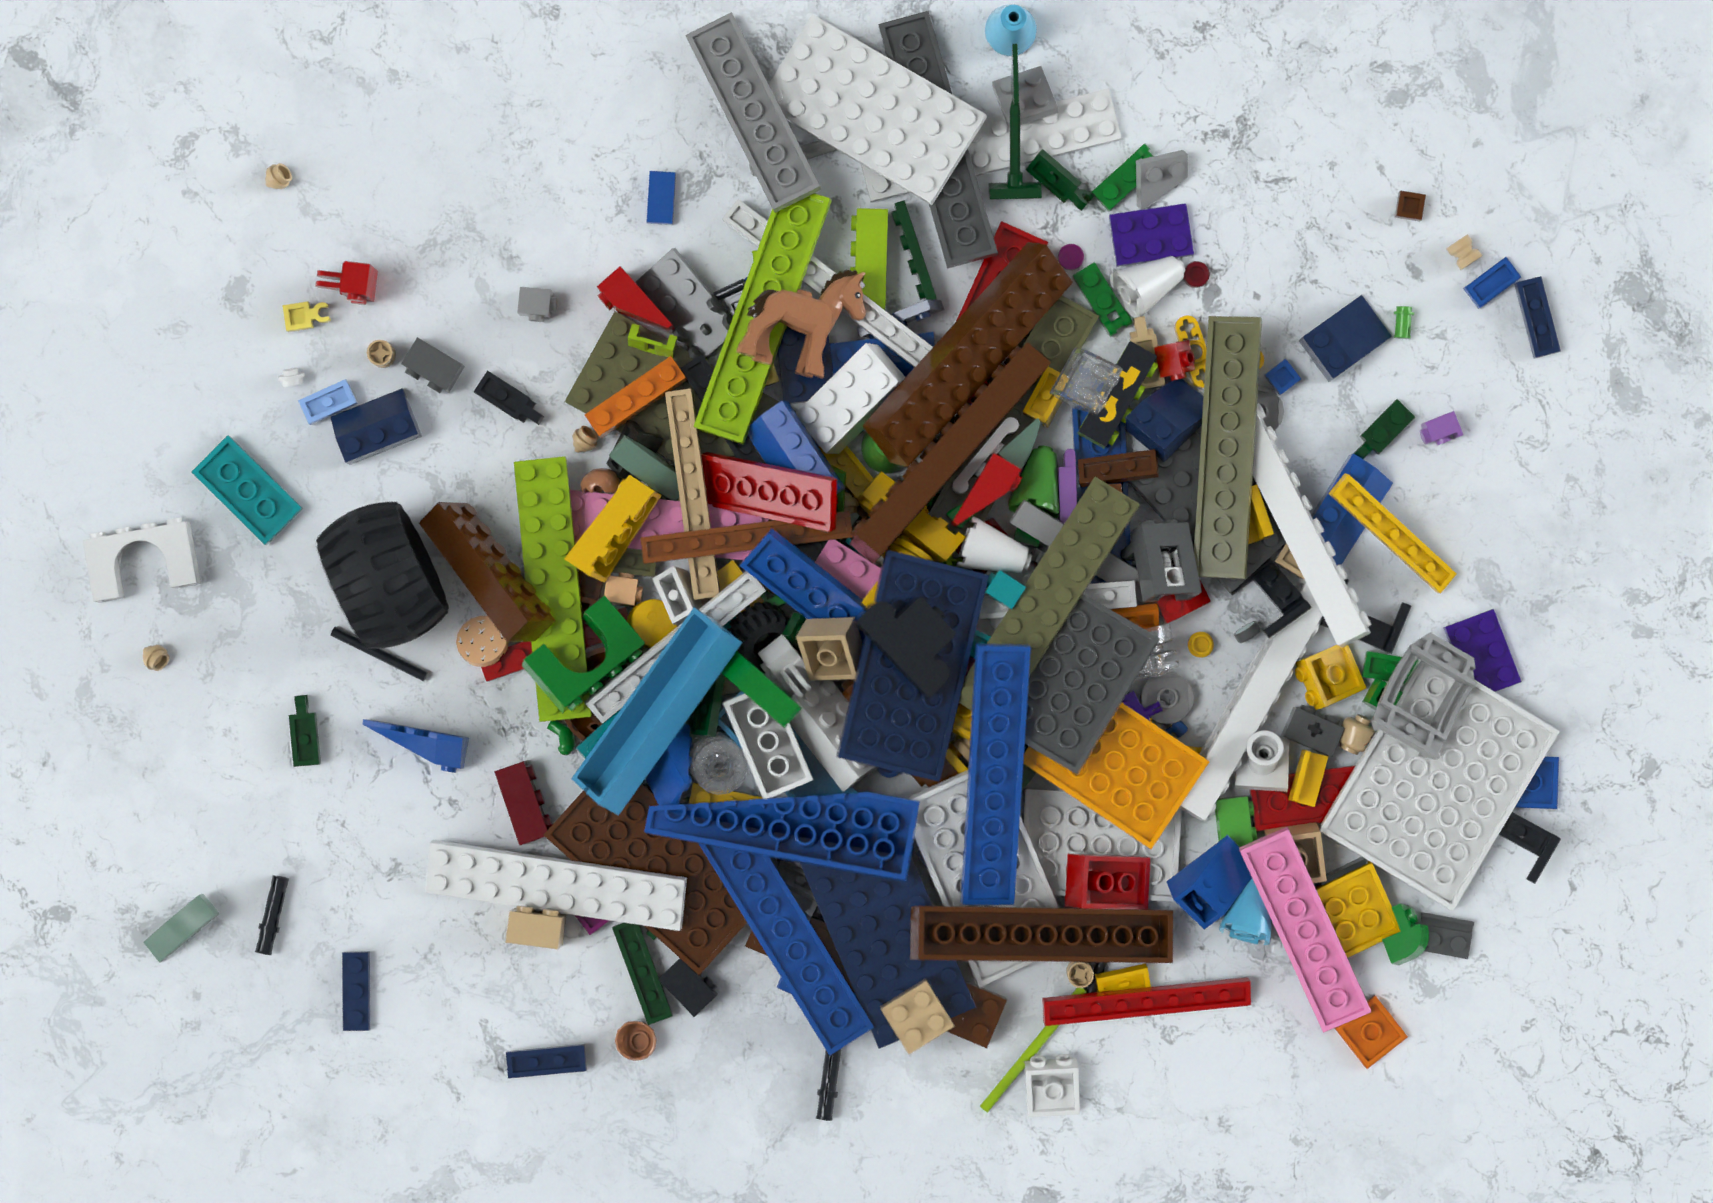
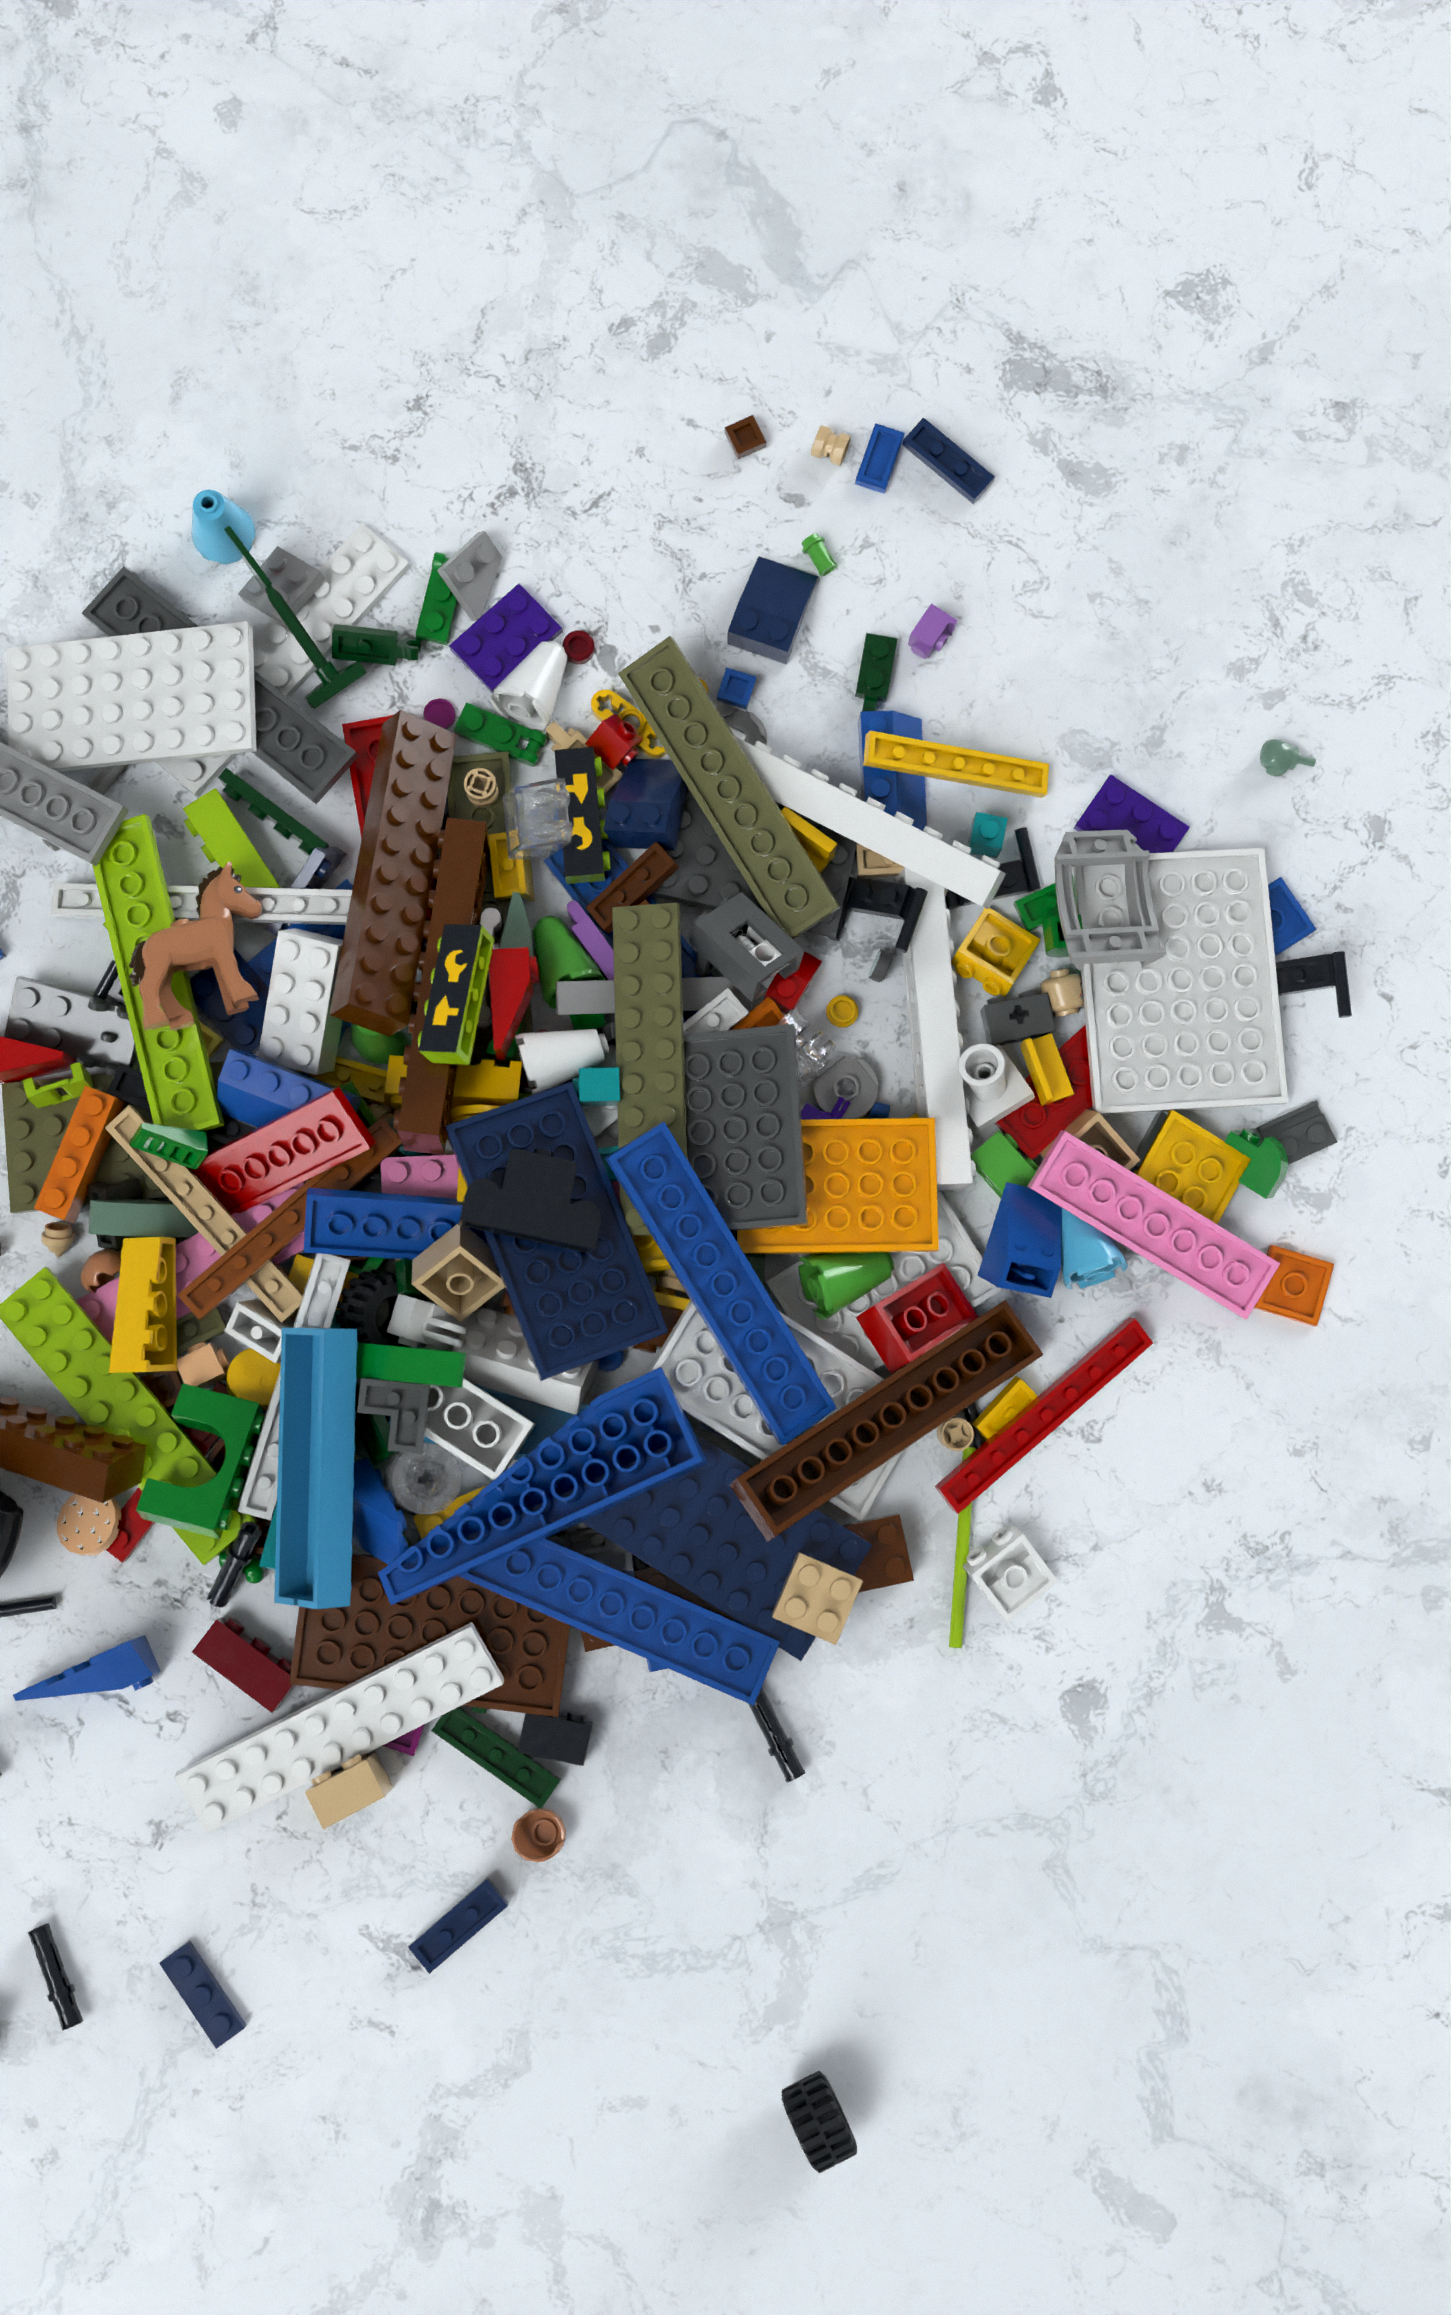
camera: 40 degrees left, 5 degrees down
(565, 730) = (238, 1556): none -> black pin
(703, 436) = (172, 1143): none -> green slope
(739, 710) = (405, 1404): none -> dark grey plate
(953, 470) = (456, 994): none -> brick
(1063, 335) = (483, 794): none -> tan wheel
(1075, 823) = (841, 1278): none -> bright green cone
(1380, 593) = (987, 834): none -> teal brick
(1618, 676) = (1280, 756): none -> sand green piece

